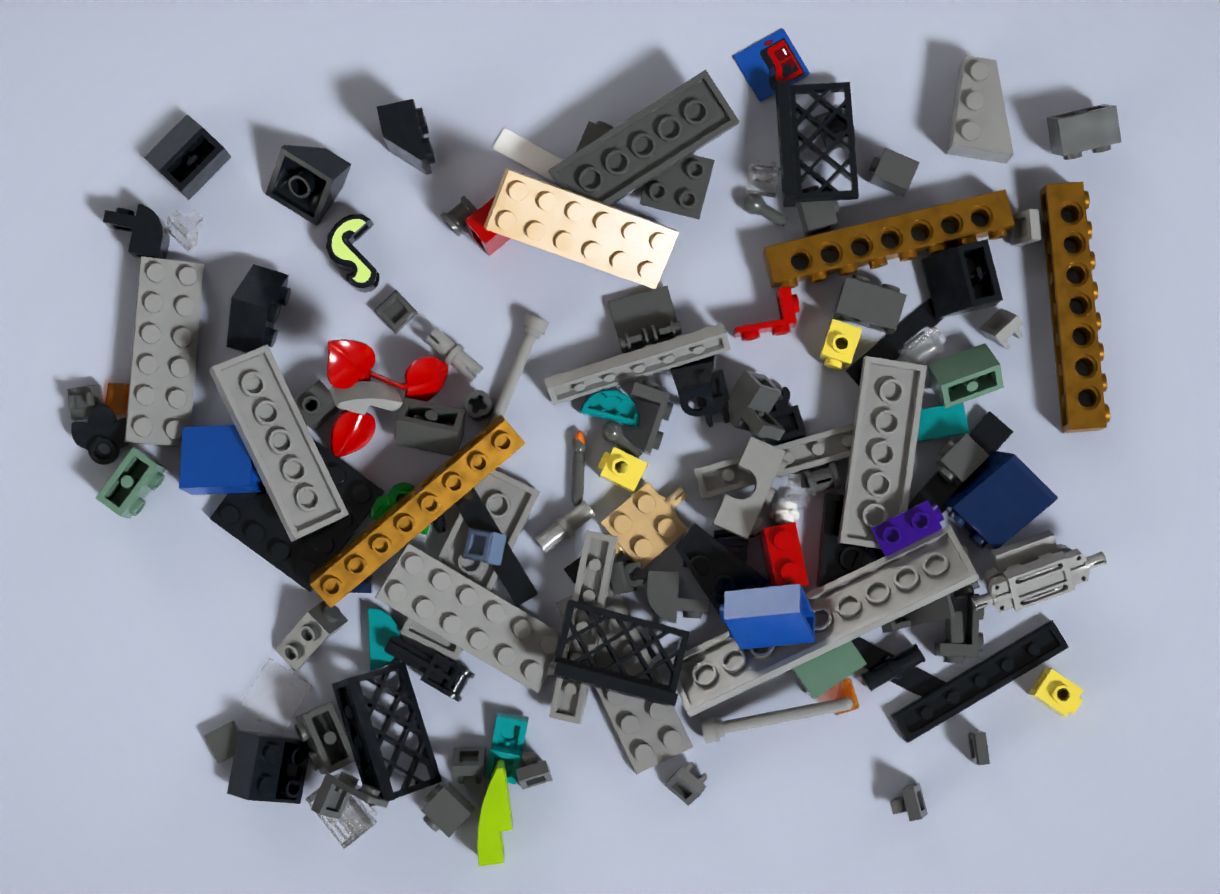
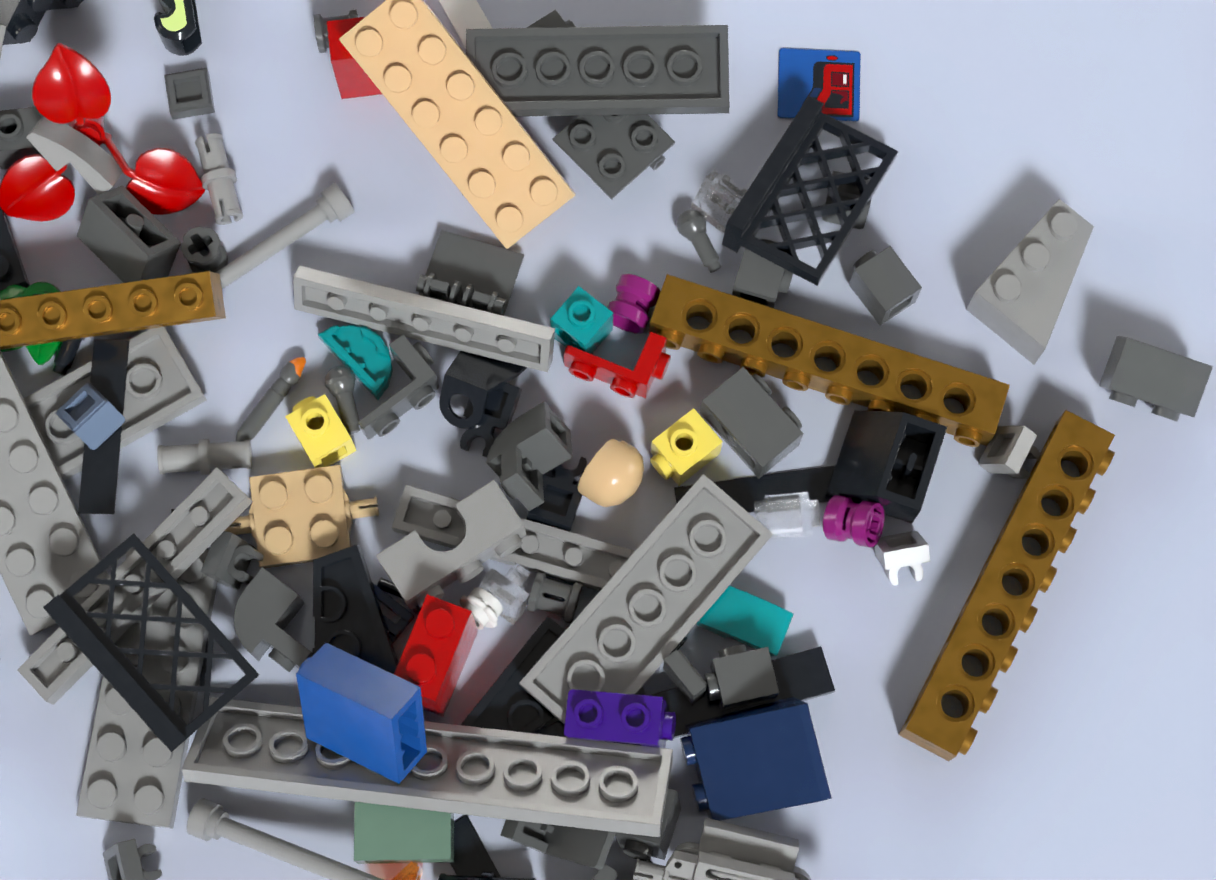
camera: 30 degrees right, 10 degrees down
(732, 307) = (582, 322): none -> teal brick
(752, 276) = (633, 302): none -> magenta wheel
(812, 387) = (612, 474): none -> tan hair
(928, 479) = (685, 676): none -> dark grey tile
(964, 327) = (854, 521): none -> magenta wheel
(965, 375) = (816, 580): sand green brick -> none

